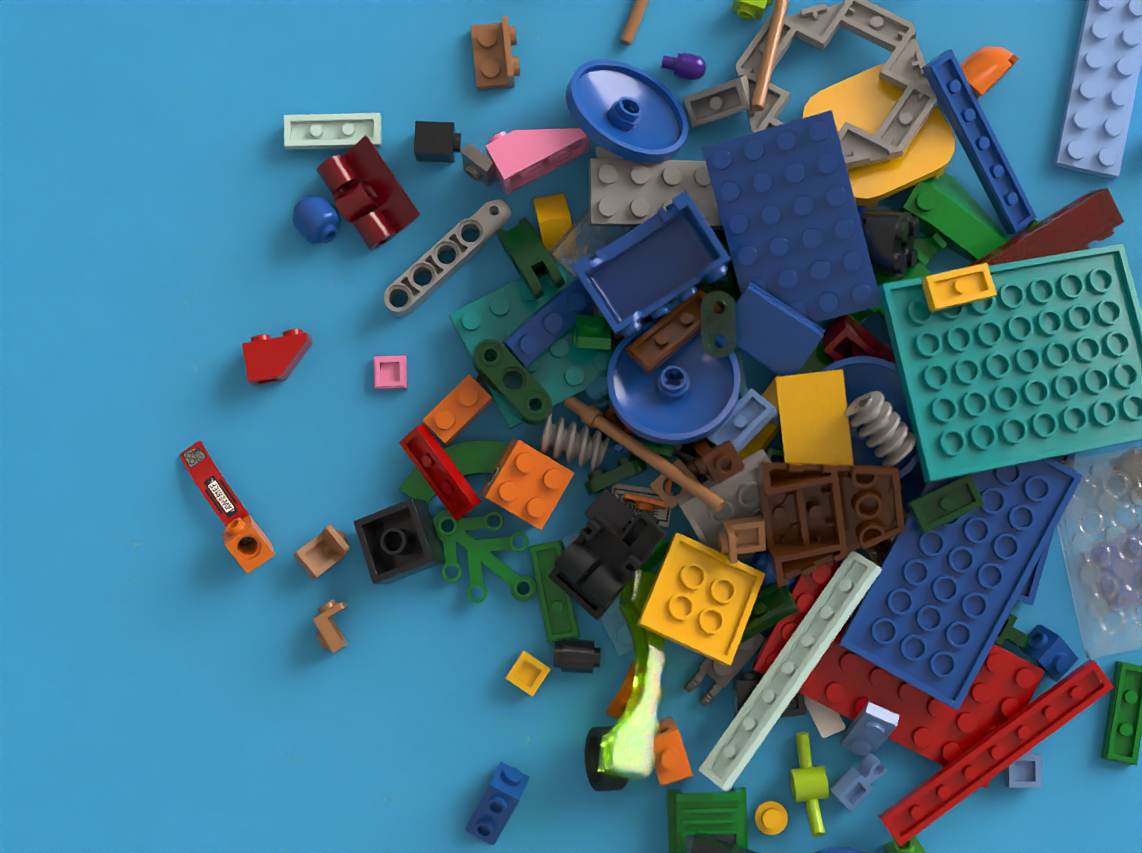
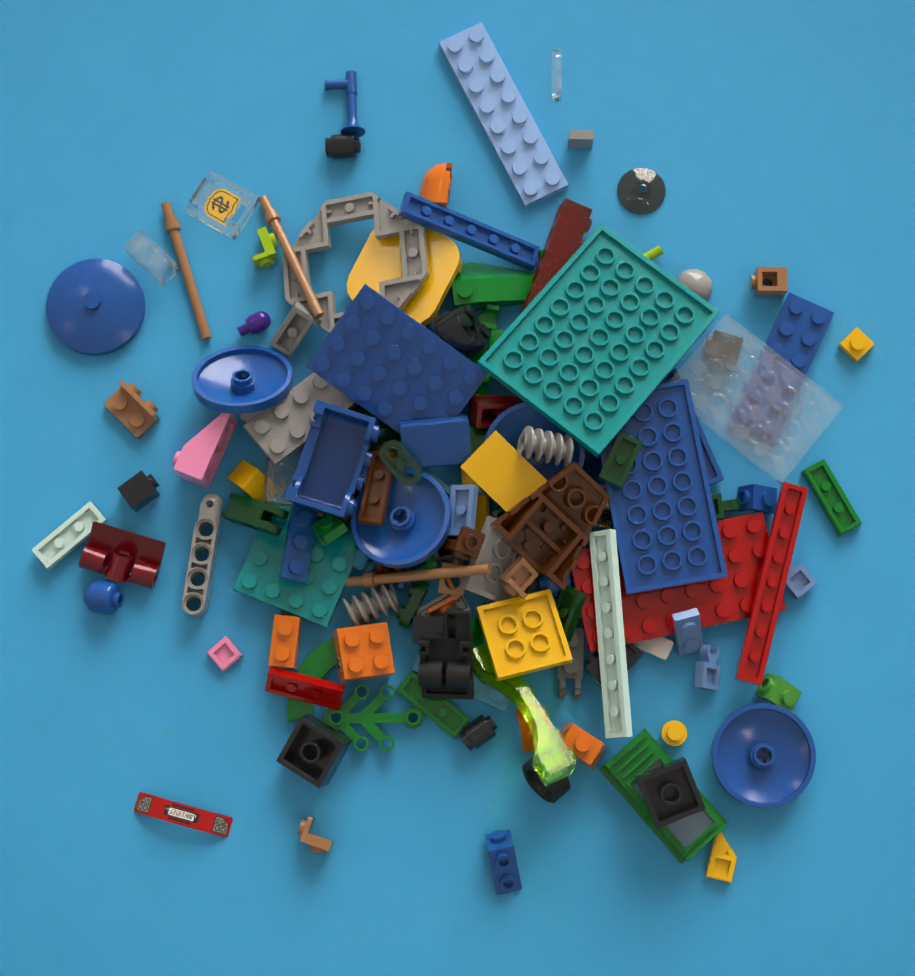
camera: 30 degrees left, 5 degrees down
(254, 554) = (230, 833): orange brick -> none
(274, 358) = (146, 702): red slope -> none
(323, 552) = (272, 796): medium nougat bracket -> none
(478, 165) = (177, 484): flat silver plate -> none
(505, 365) = (293, 589): dark green piece -> none
(528, 673) = (457, 767): yellow plate -> none
(809, 784) = (679, 693): lime piece -> none
(958, 287) = (524, 327): yellow plate -> none

